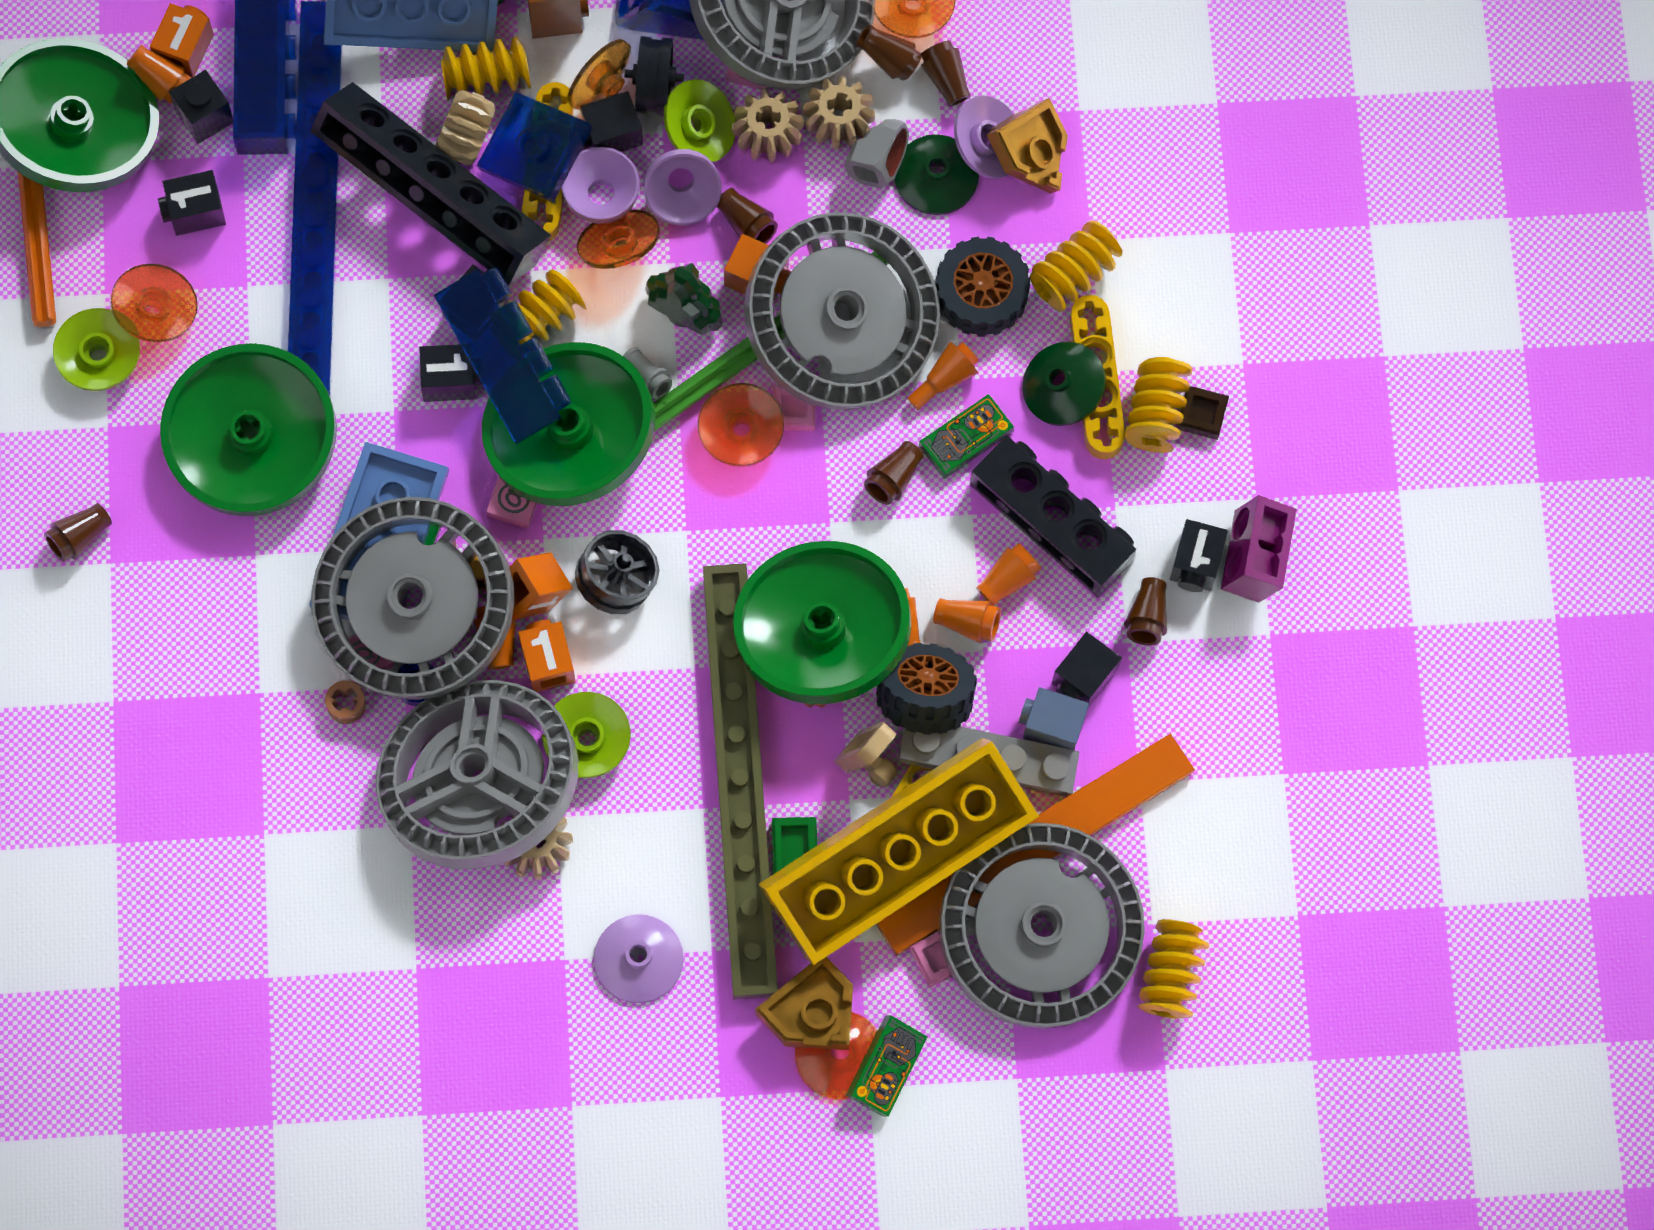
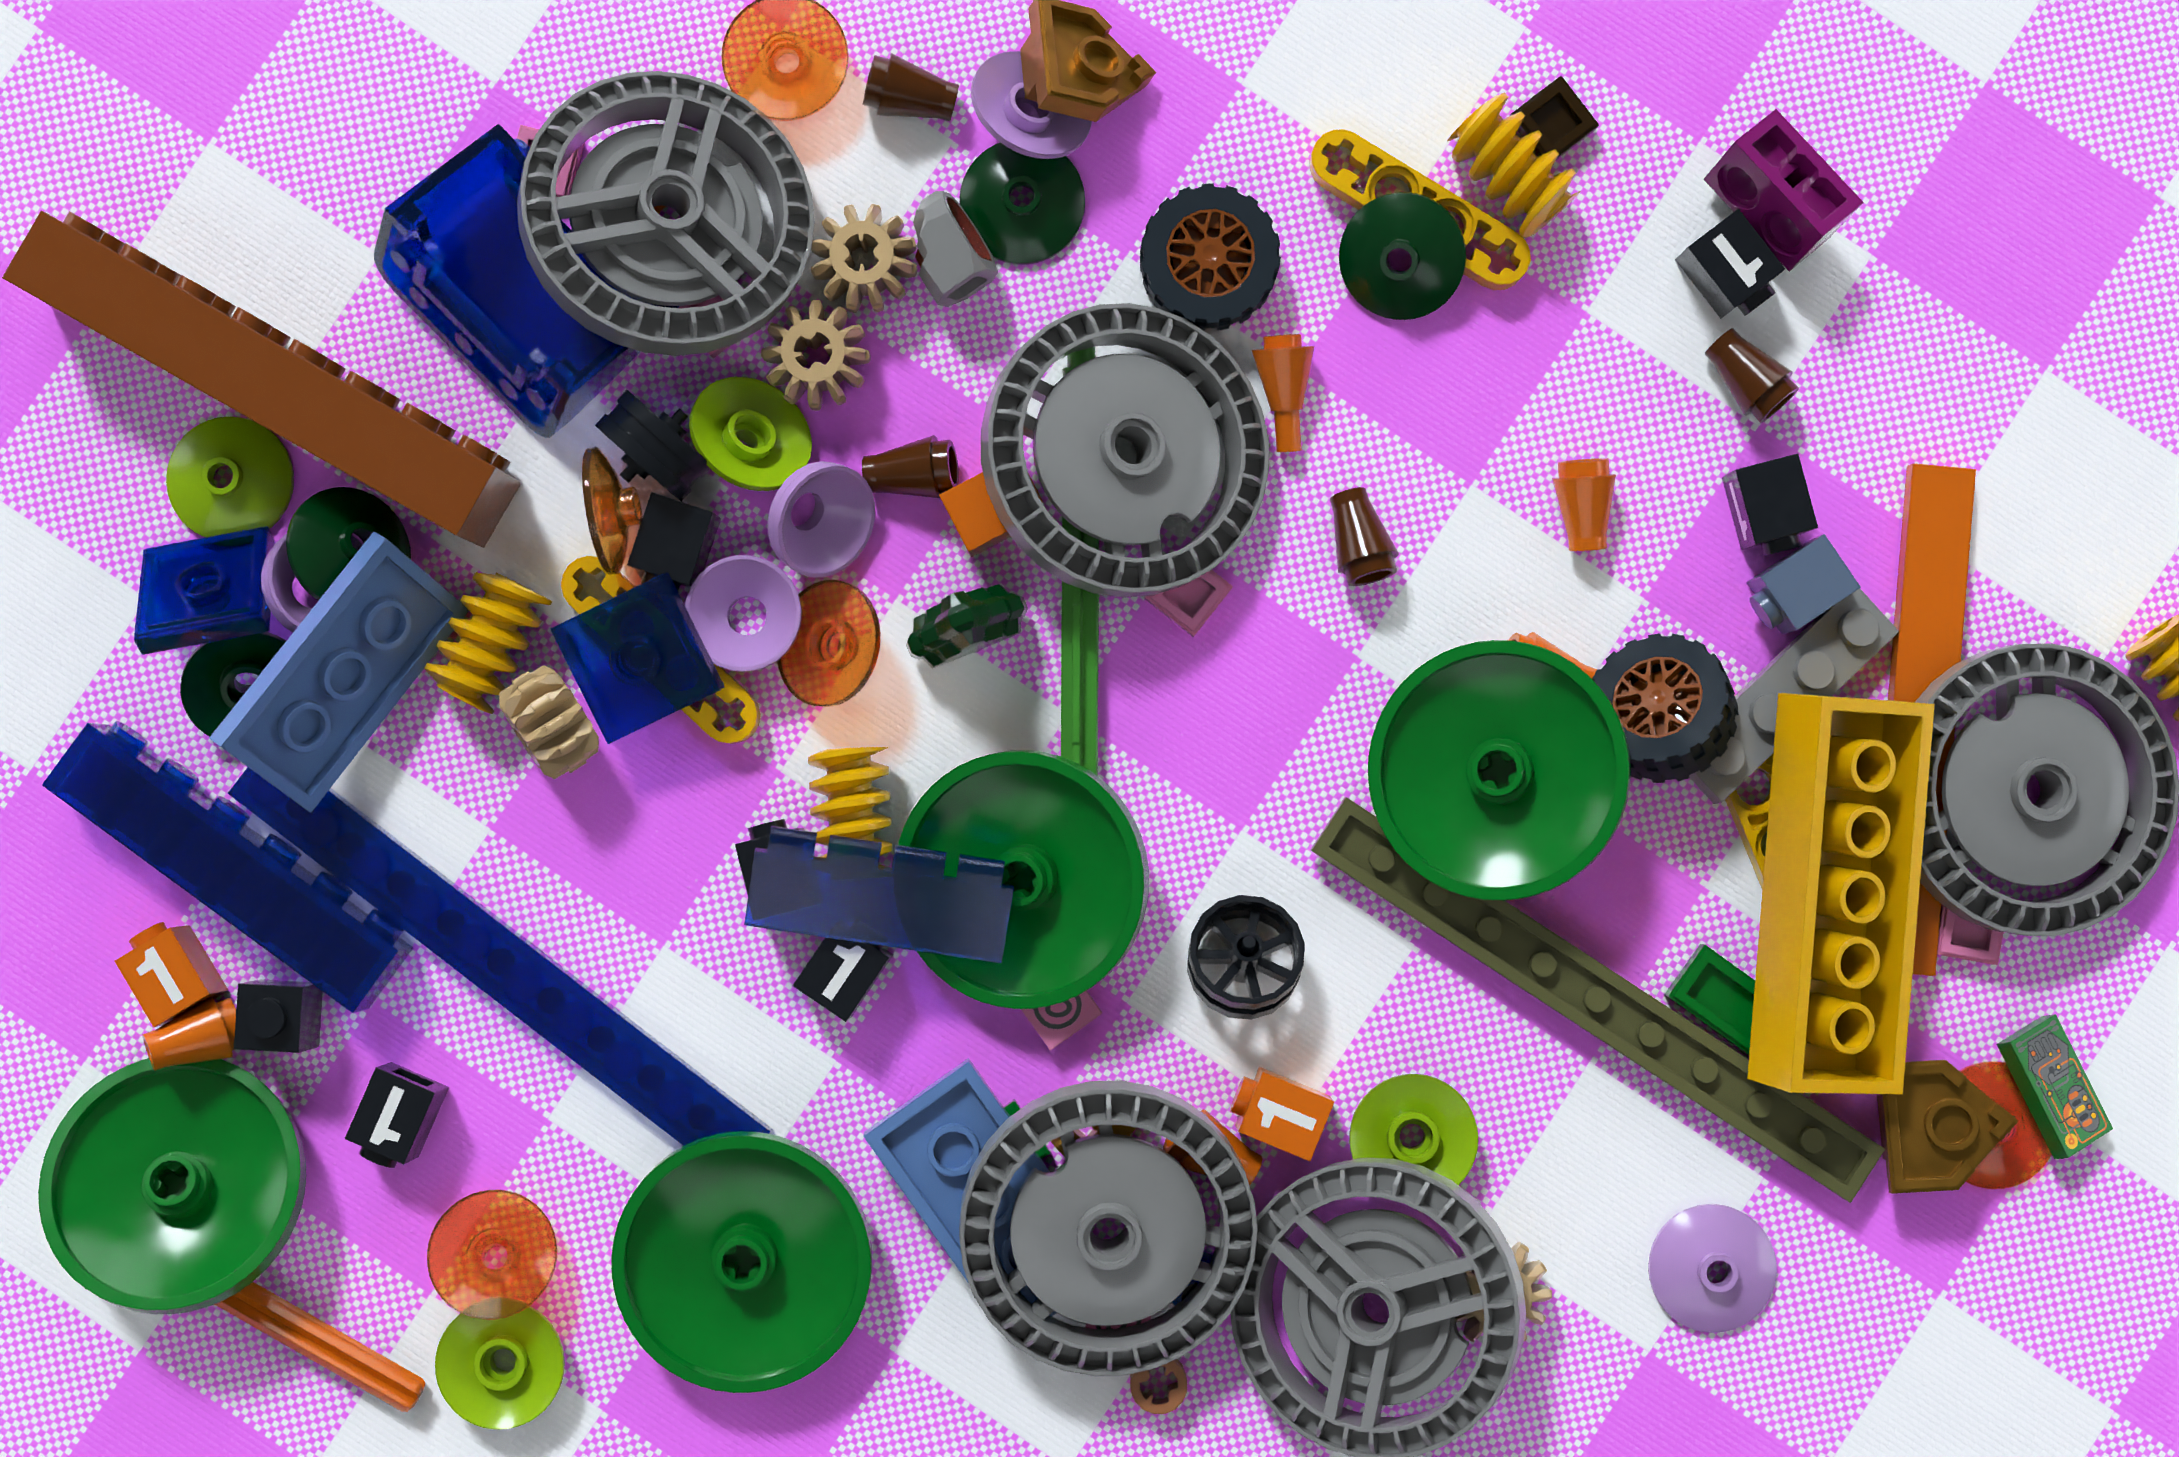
camera: 45 degrees left, 15 degrees up
(430, 182) = (590, 819): black brick -> none
(537, 585) = (1192, 1062): orange brick -> none
(656, 378) = (1029, 733): light grey pin -> none
(740, 405) = (1177, 639): clear orange dish -> none
(865, 753) = (1682, 833): tan piece -> none
(891, 53) = (837, 138): reddish brown cone -> none
(966, 436) = (1376, 418): tile -> none
(969, 618) = (1602, 588): orange cone -> none
(1073, 263) = (1268, 128): yellow piece -> none
(1091, 567) = (1657, 393): black brick -> none

